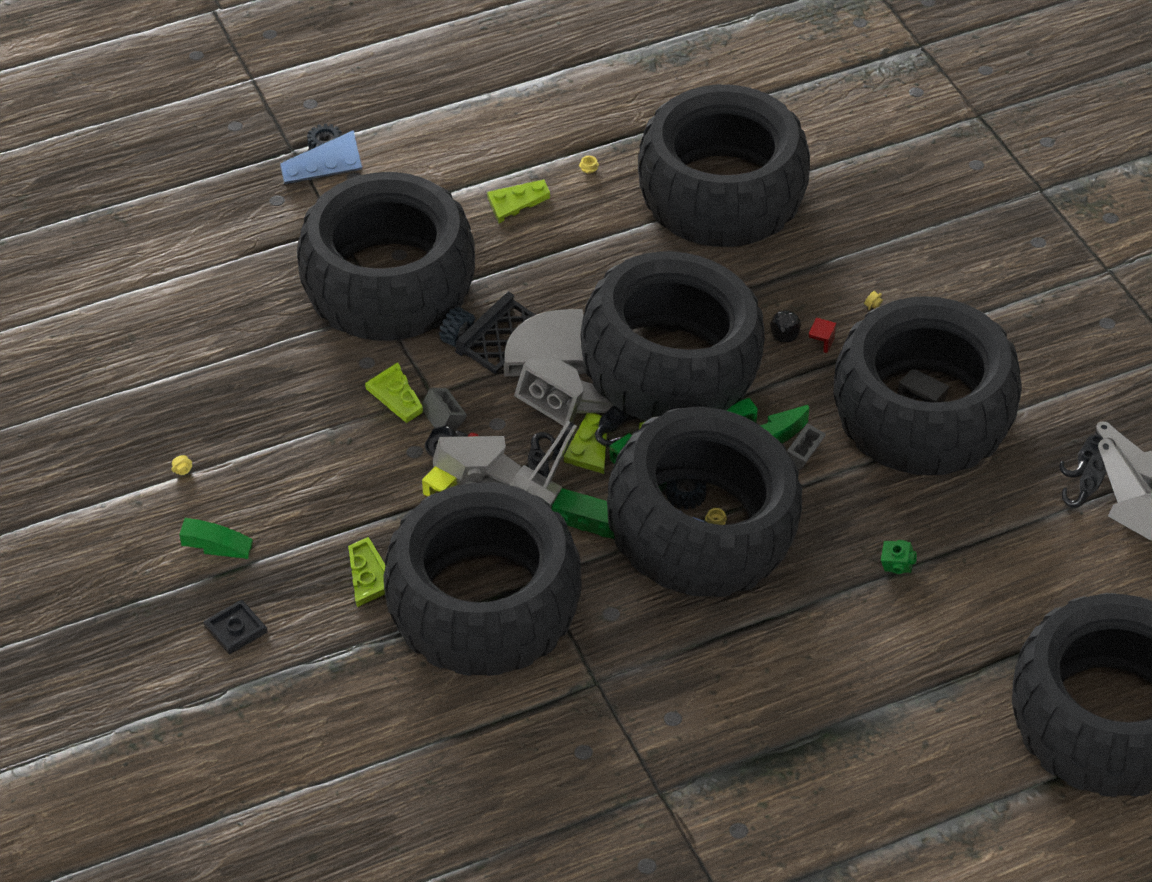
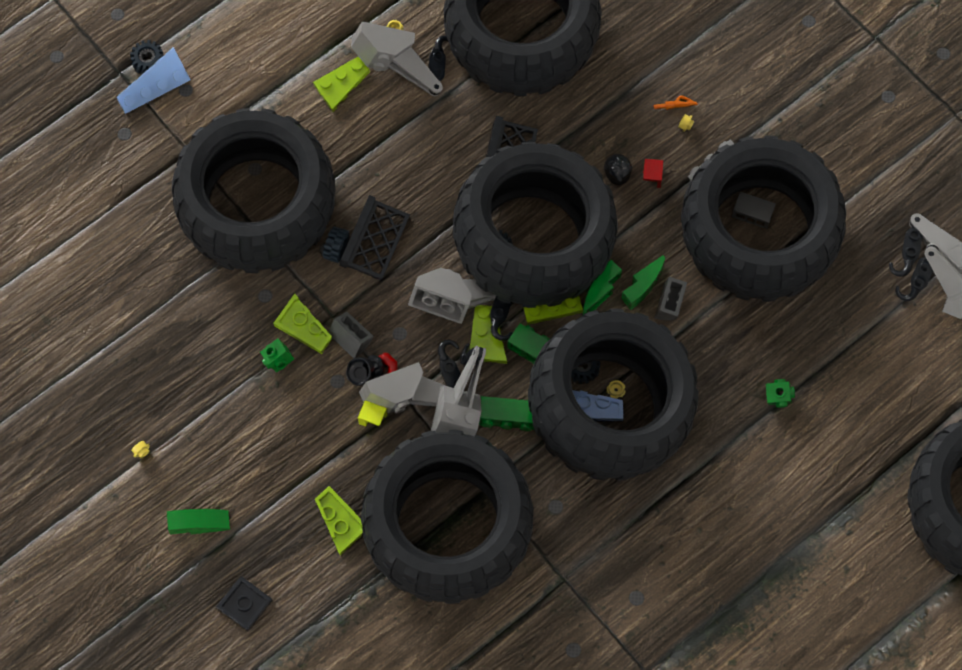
camera: 15 degrees left, 20 degrees up
(357, 410) = (276, 355): none -> green brick
(546, 336) = (421, 242): light grey brick -> none
(576, 173) = (392, 48): none -> light grey slope
(873, 283) = (676, 104): none -> orange hand

